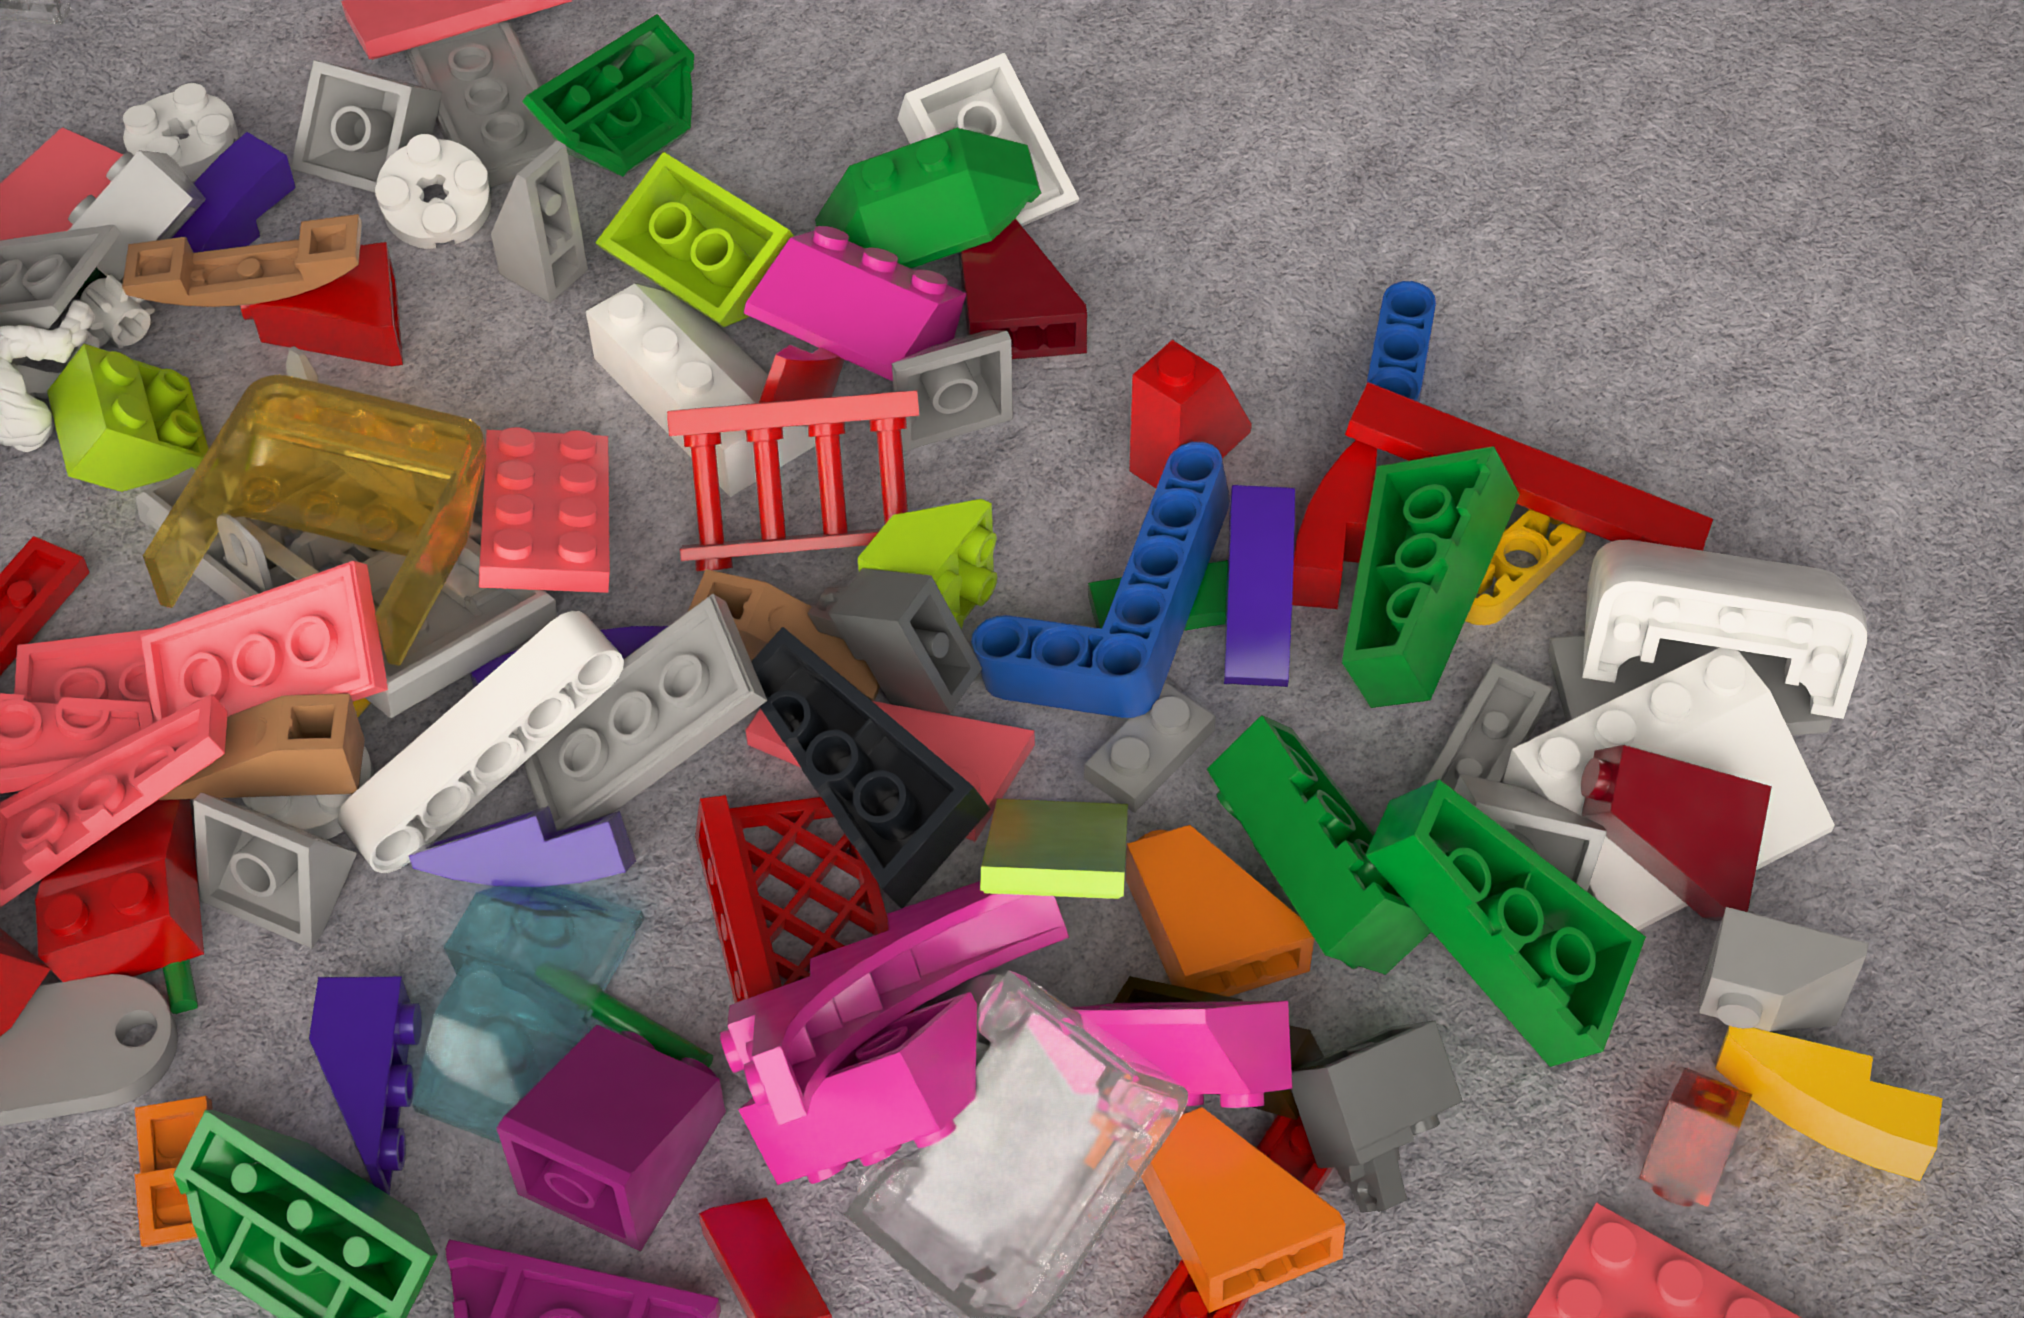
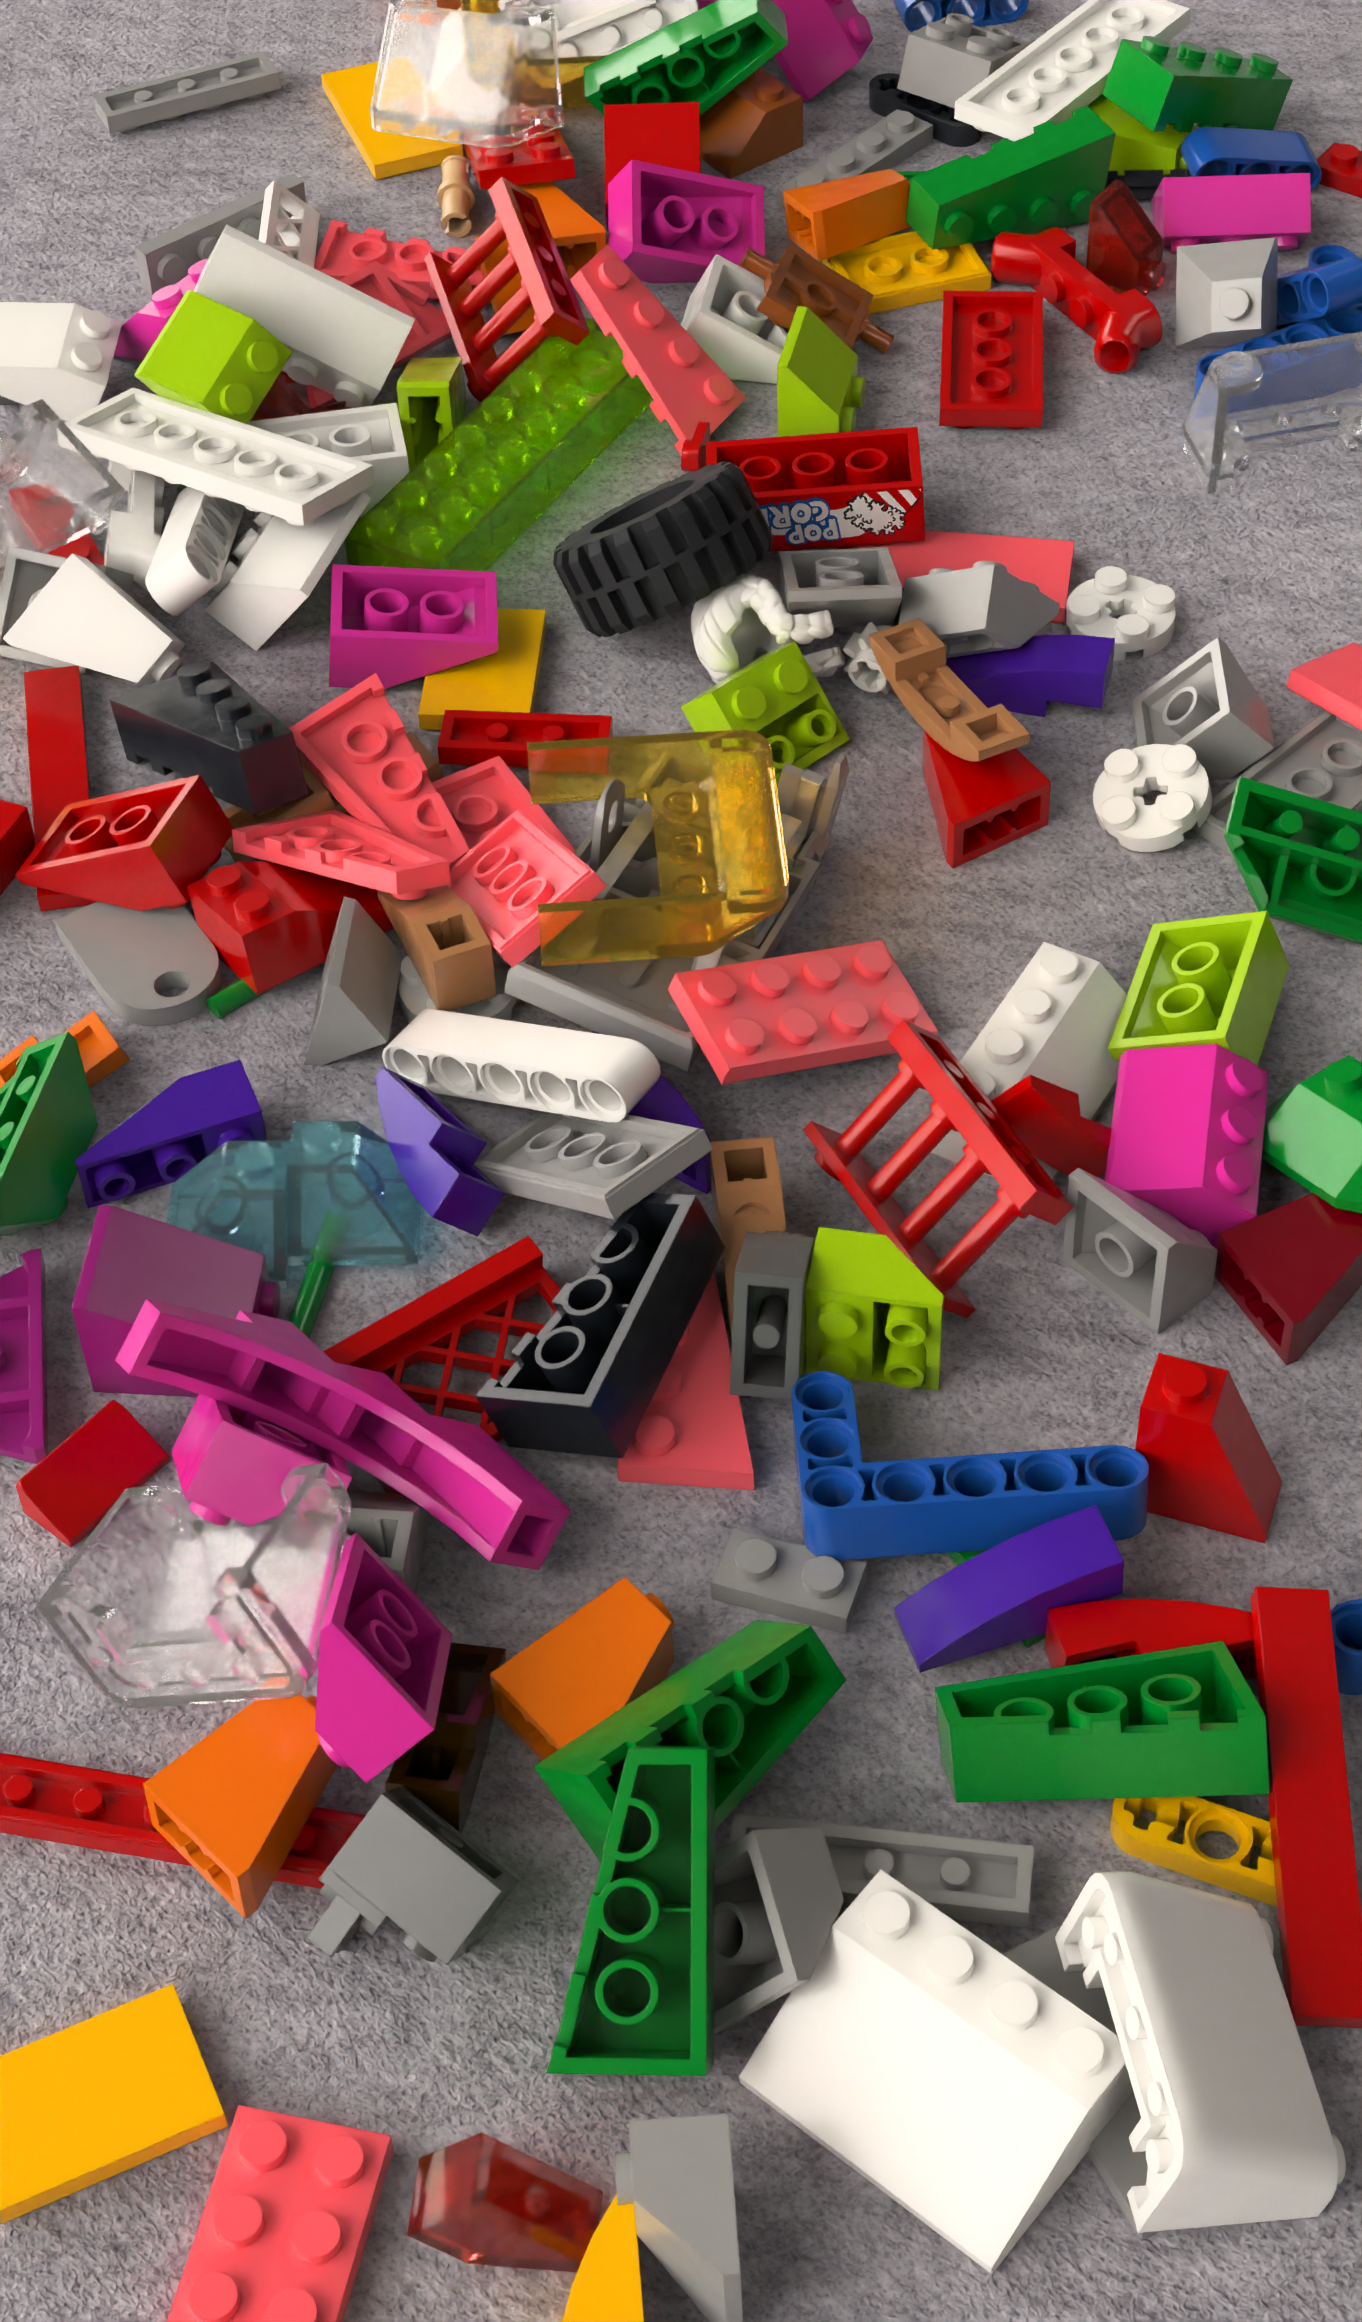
camera: 70 degrees right, 5 degrees down
(540, 229) = (1128, 870): light grey slope -> none
(1056, 849) = (571, 1508): lime tile -> none
(1680, 823) = (862, 2063): dark red slope -> none

